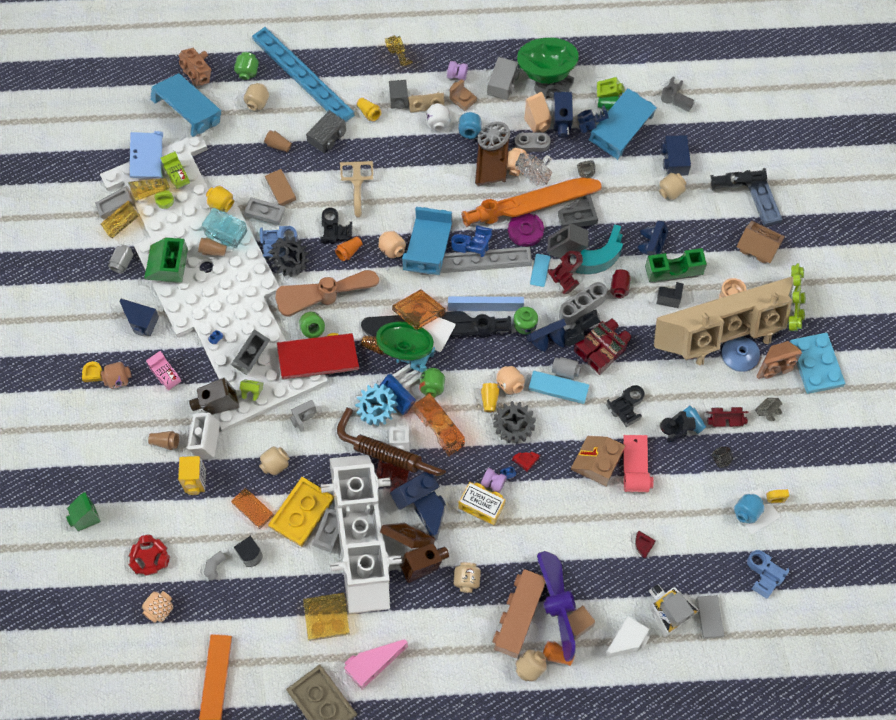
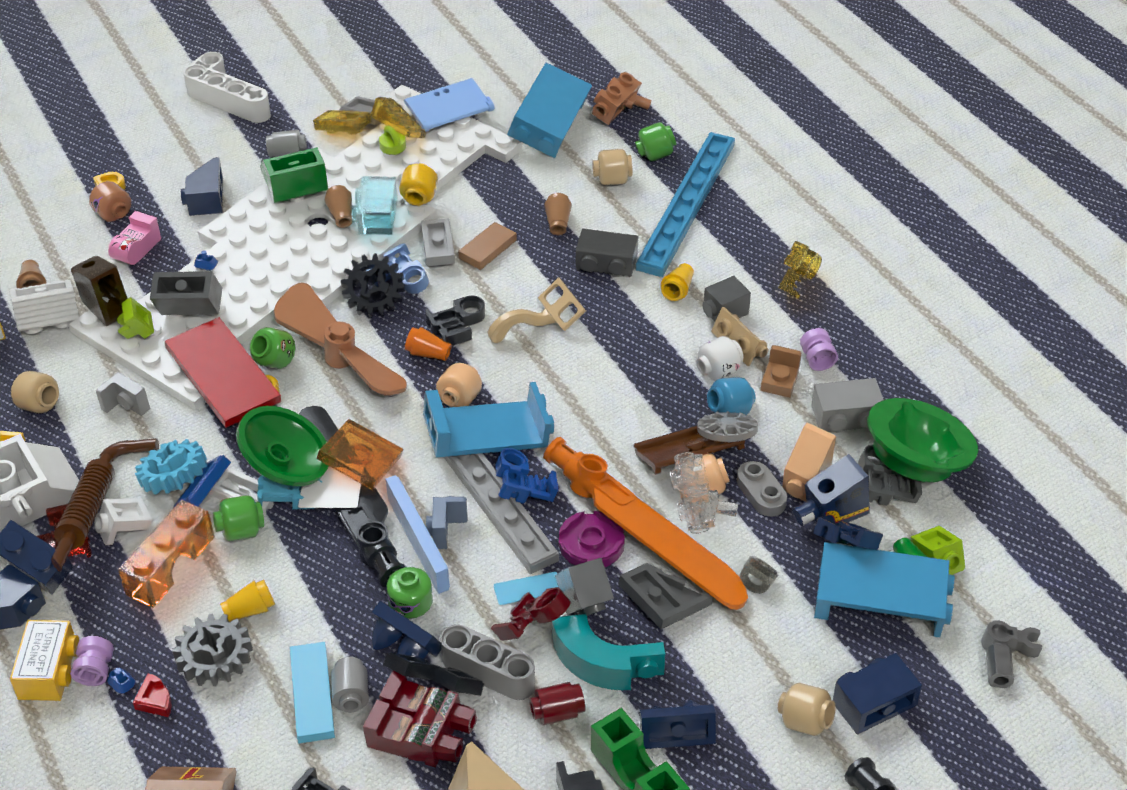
camera: 65 degrees right, 20 degrees down
(65, 259) = (211, 85): none -> white beam
(175, 170) = (439, 133): lime leg -> none
(482, 289) = (445, 511): none -> sand blue bracket
(510, 380) = (289, 615): light nougat head -> none

